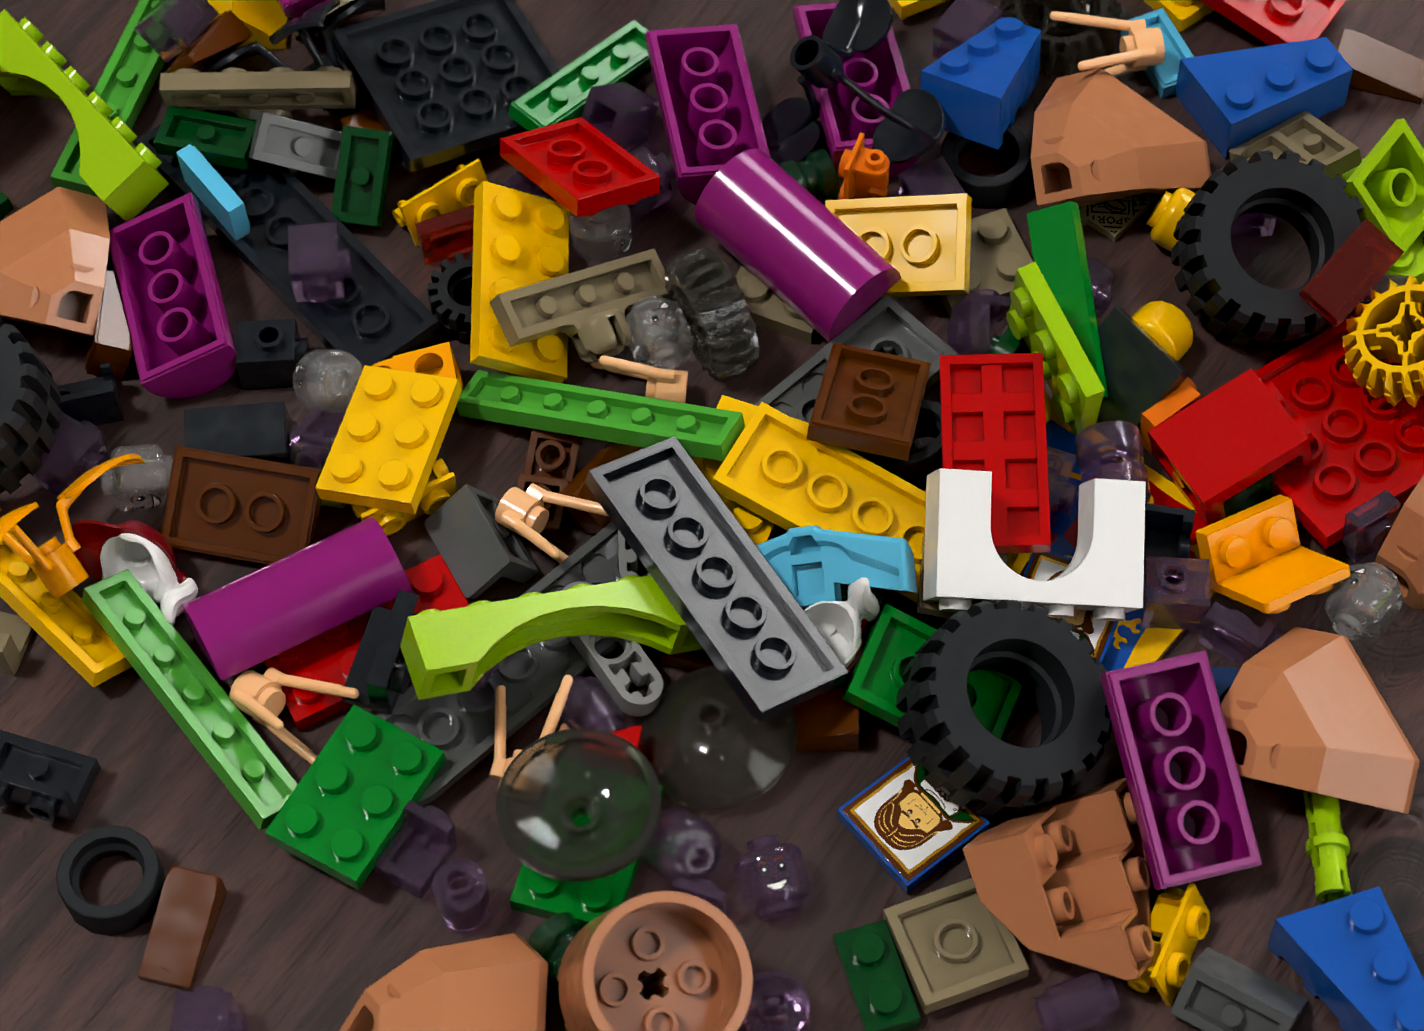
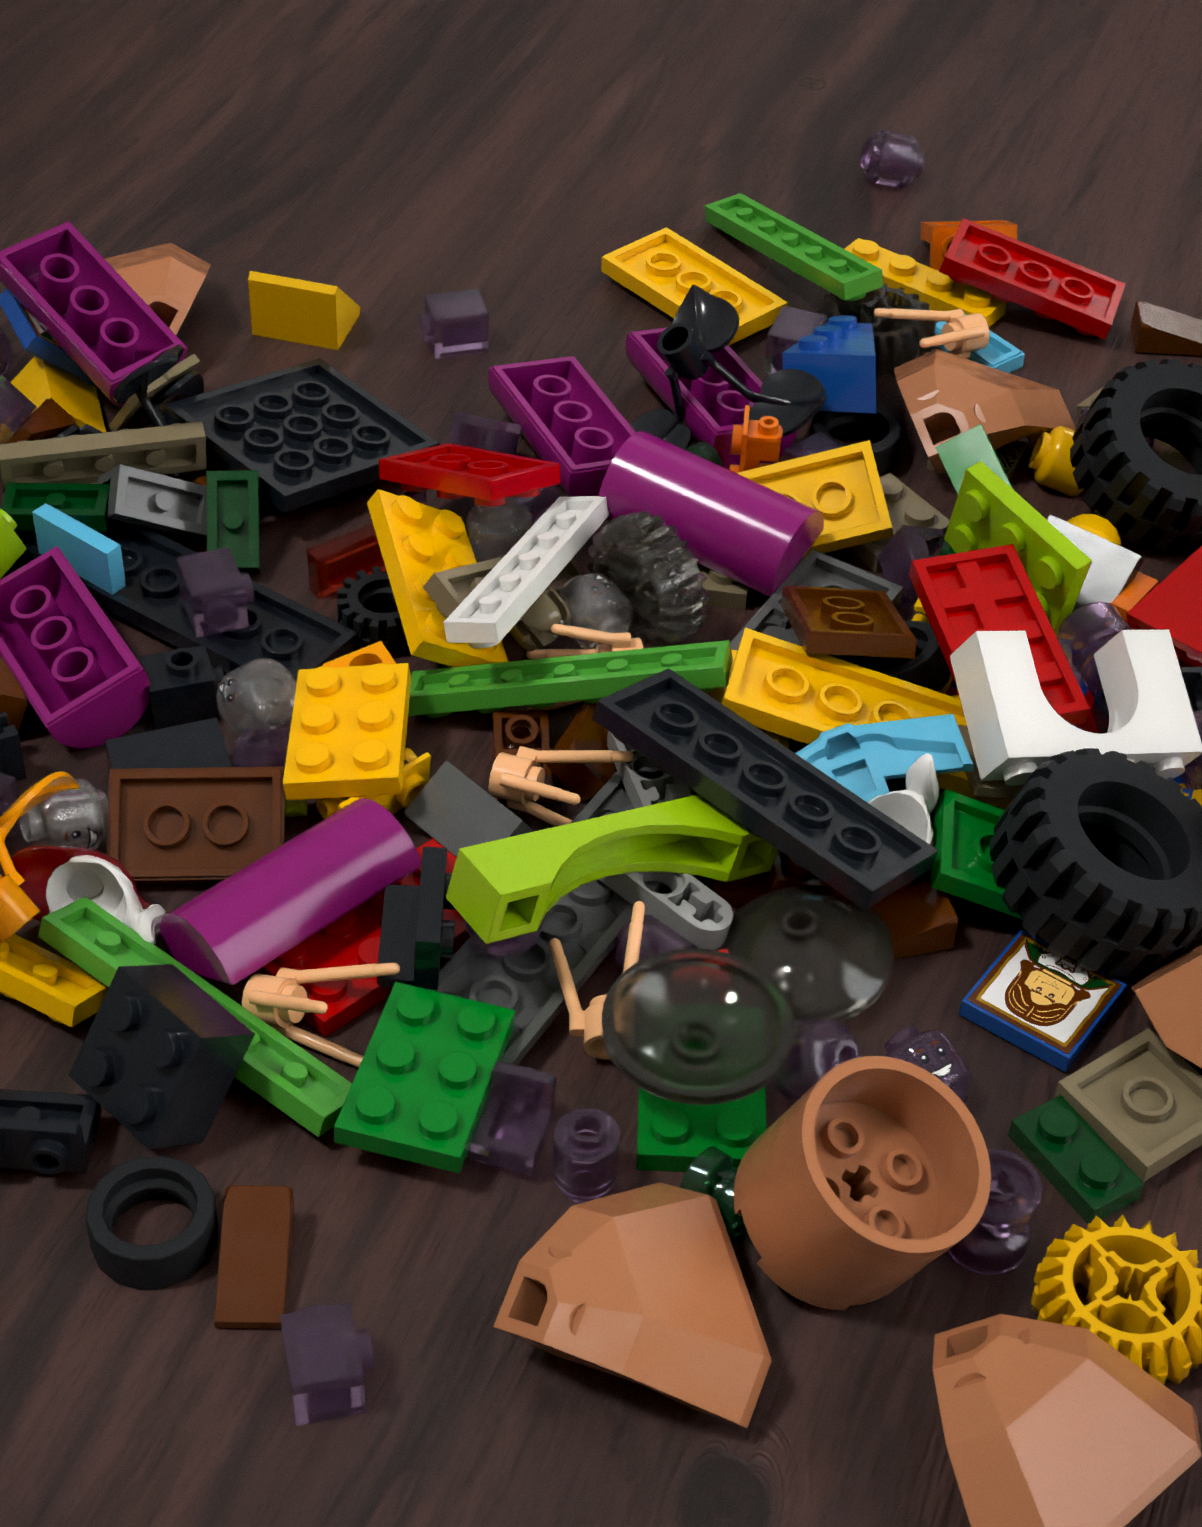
camera: 20 degrees left, 15 degrees down
(145, 738) = (161, 1055): none -> black brick
(443, 197) = (332, 522): yellow hinge -> none
(566, 92) = (432, 421): green tile -> none
(593, 293) = (525, 571): none -> white plate
(1257, 88) = (1084, 349): blue wedge -> none

